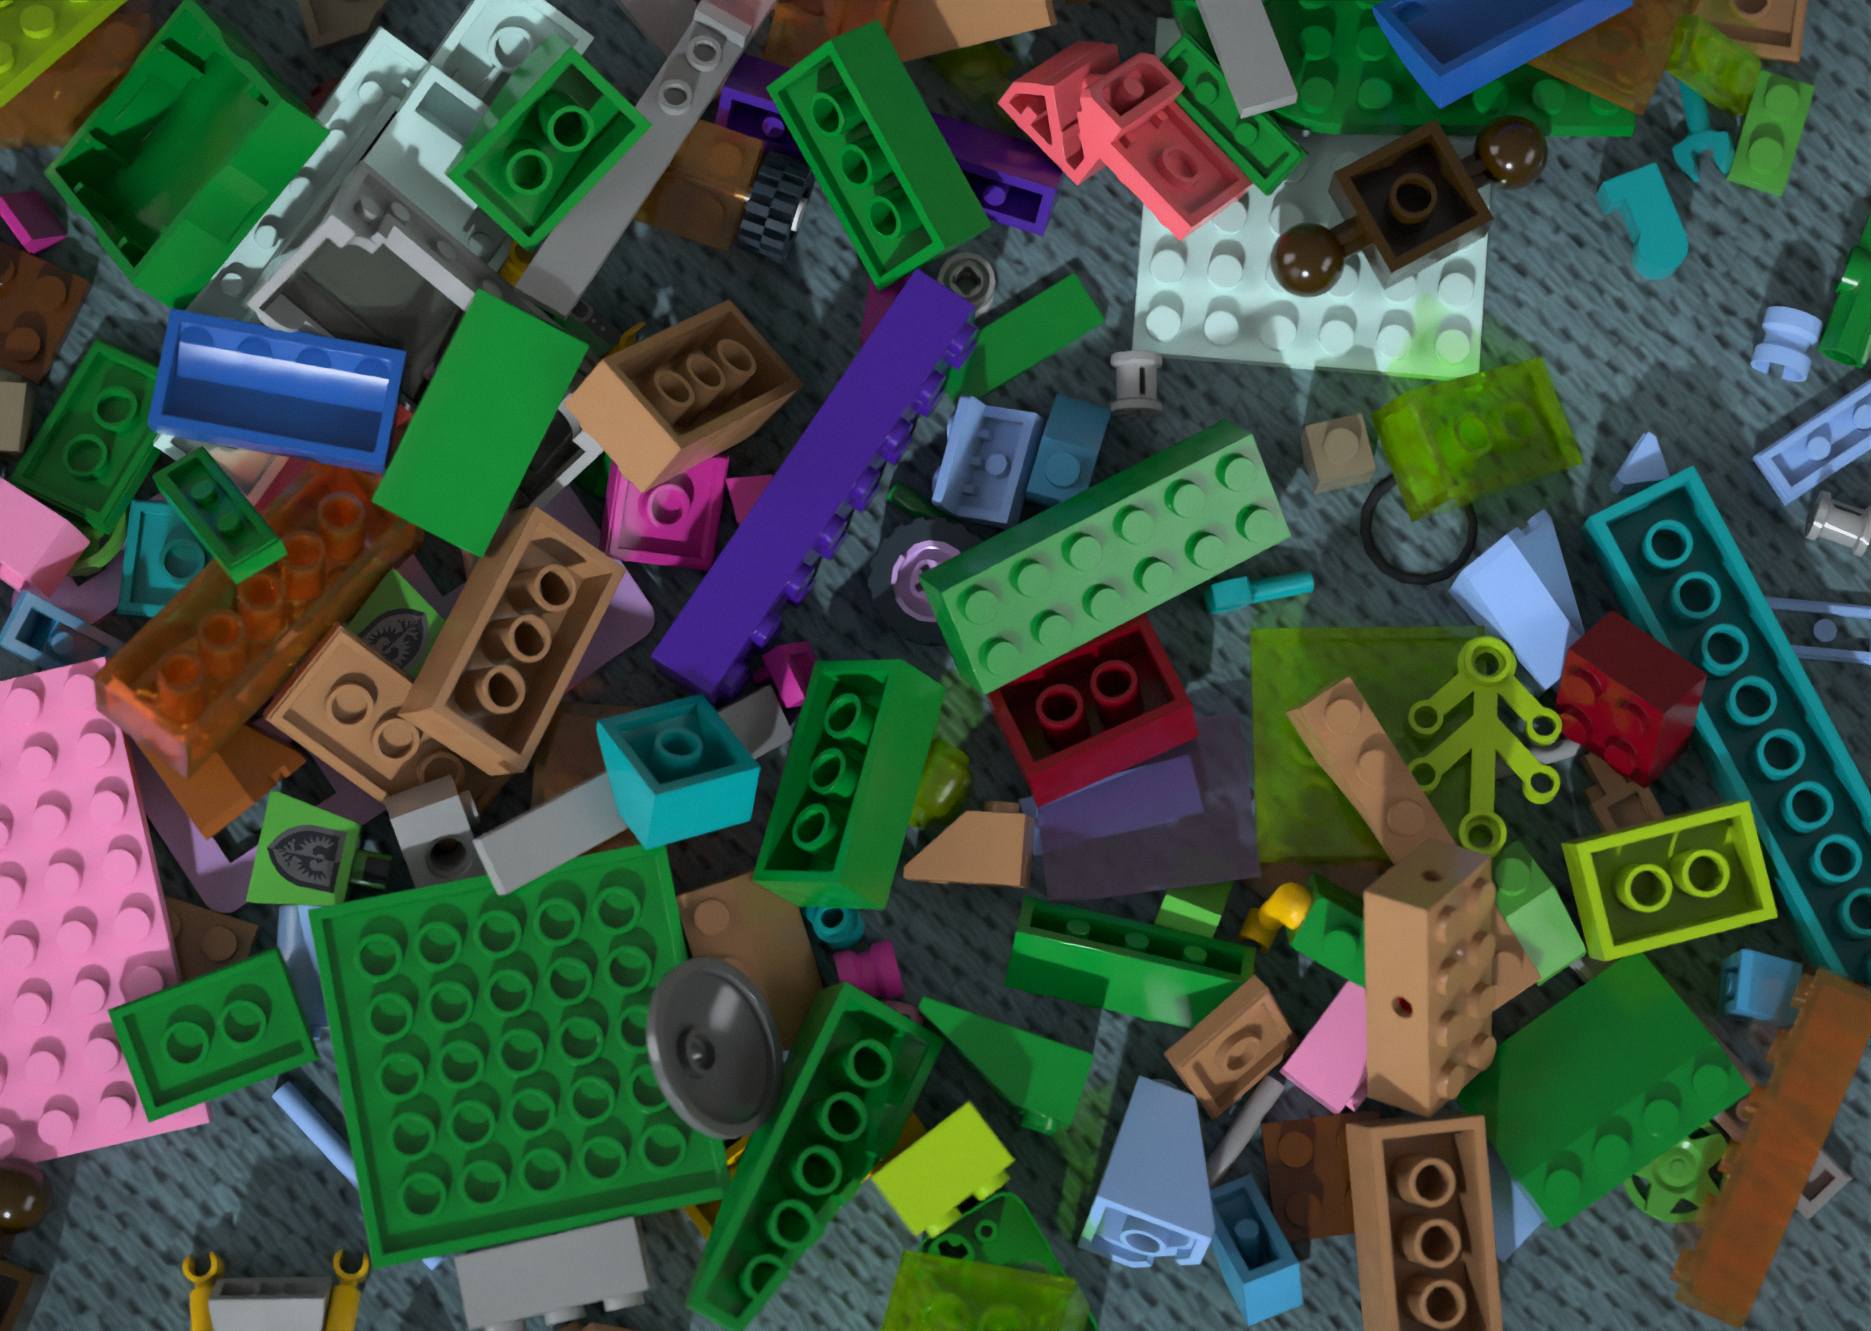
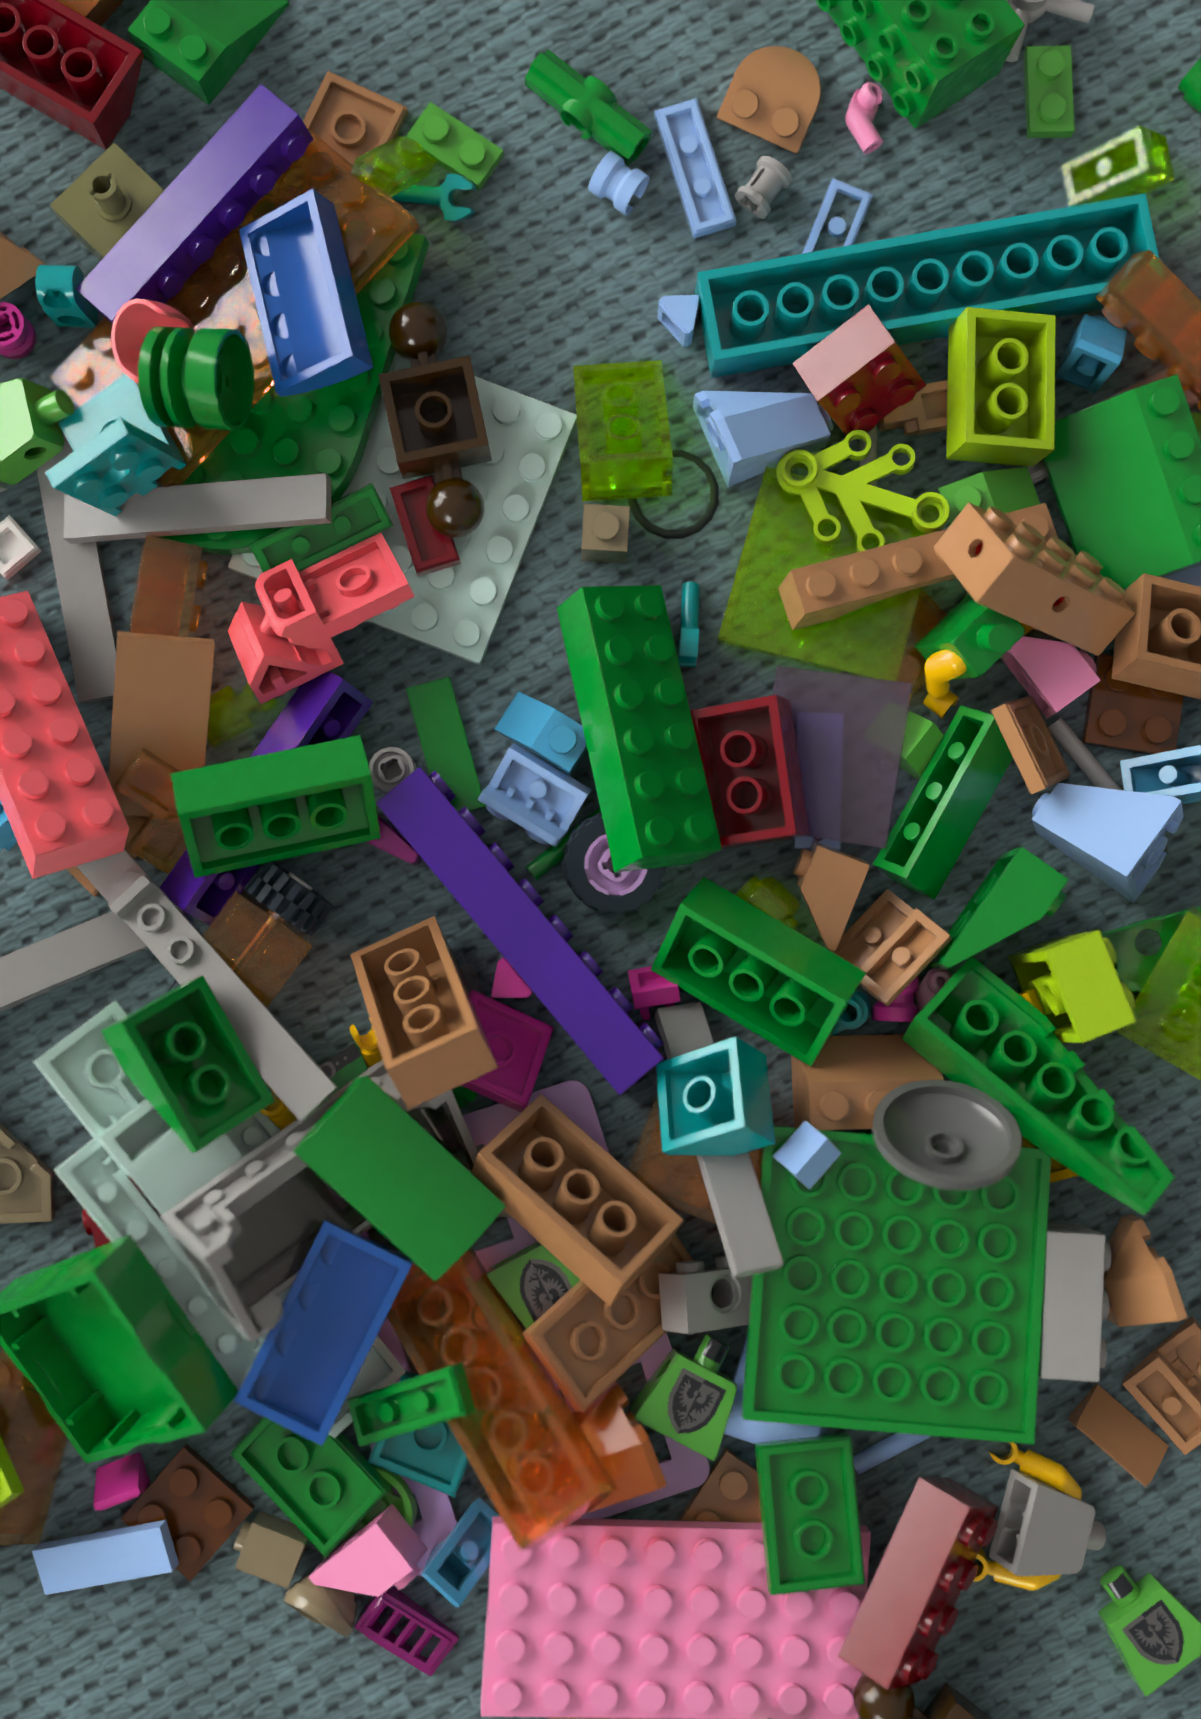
camera: 75 degrees left, 5 degrees up
(168, 1192) = (919, 1583): none -> brick
(642, 896) = (807, 1154): none -> light blue slope
(927, 941) = (891, 946): none -> medium nougat slope
(1136, 384) = (506, 667): light grey bush -> none
(1250, 243) = (427, 547): none -> dark red tile
(1649, 218) = (496, 252): teal leg -> none

